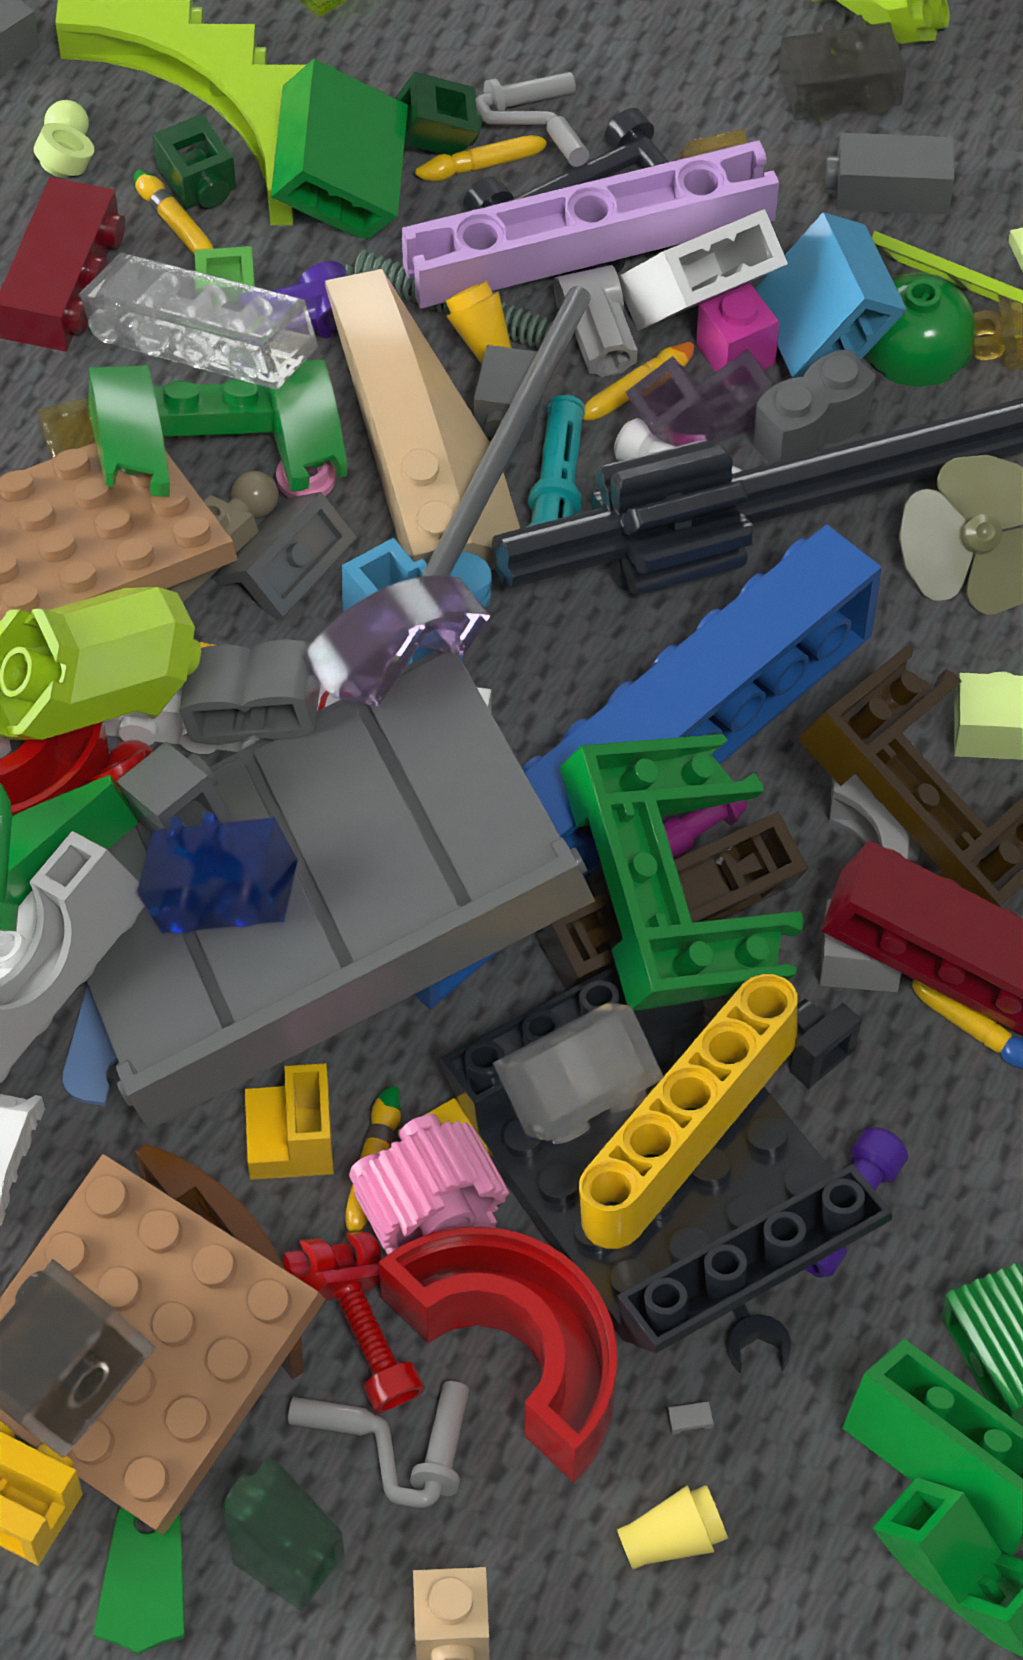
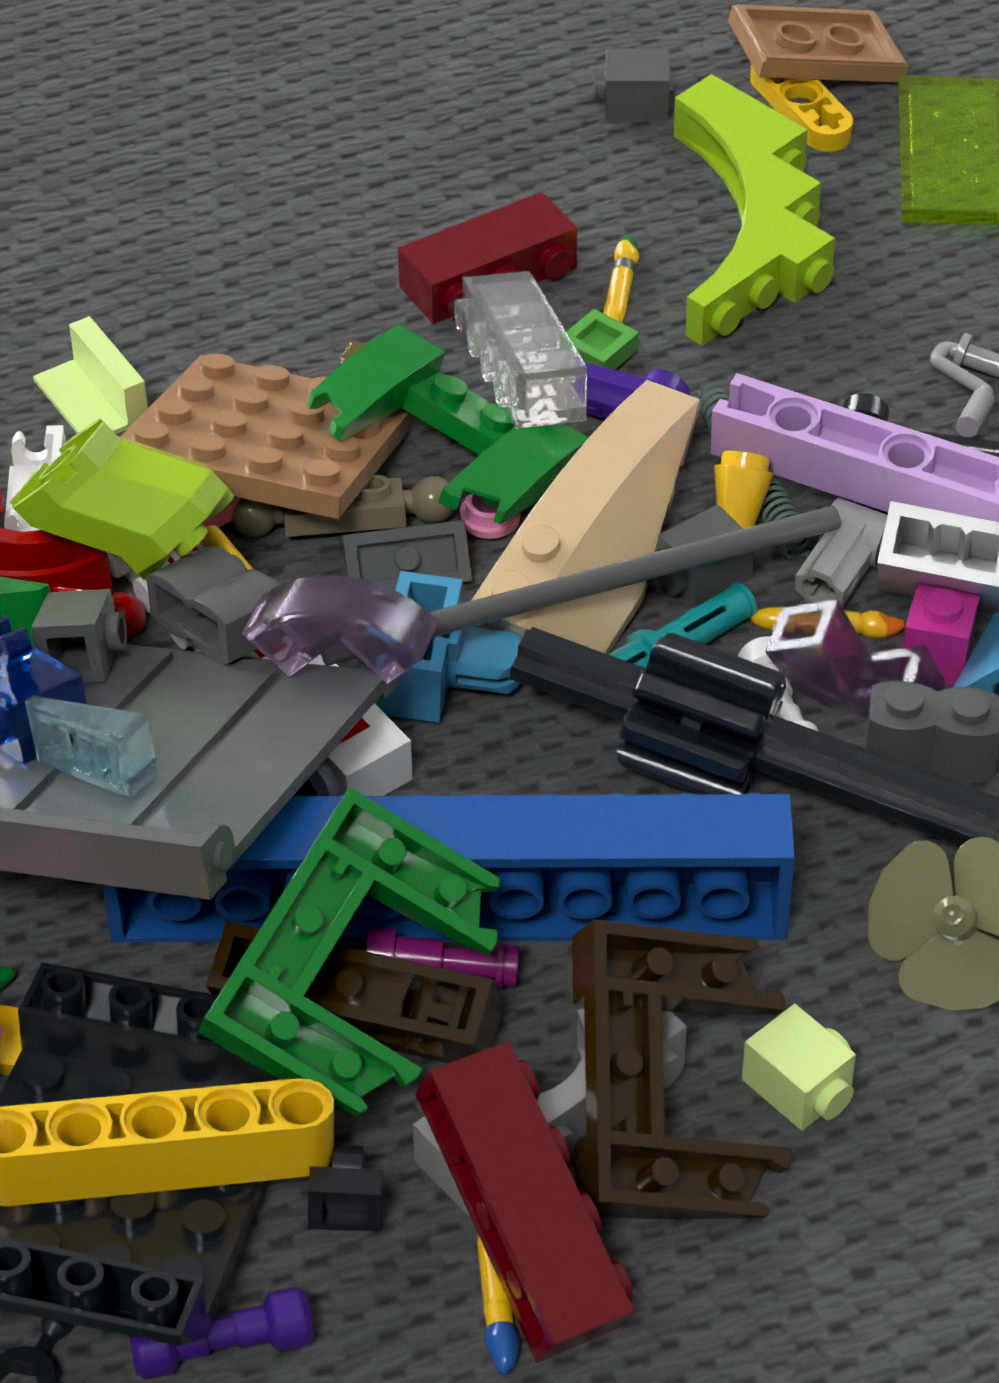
camera: 45 degrees right, 10 degrees down
(62, 140) = (594, 188): yellowish green plate -> none
(201, 174) = (668, 267): dark green brick -> none
(339, 150) = (773, 300): green brick -> none
(366, 855) = (125, 733): none -> clear light blue slope
(439, 114) = (891, 332): dark green brick -> none
(477, 158) = (896, 386): yellow piece -> none
(579, 1073) = (104, 1045): clear brick -> none

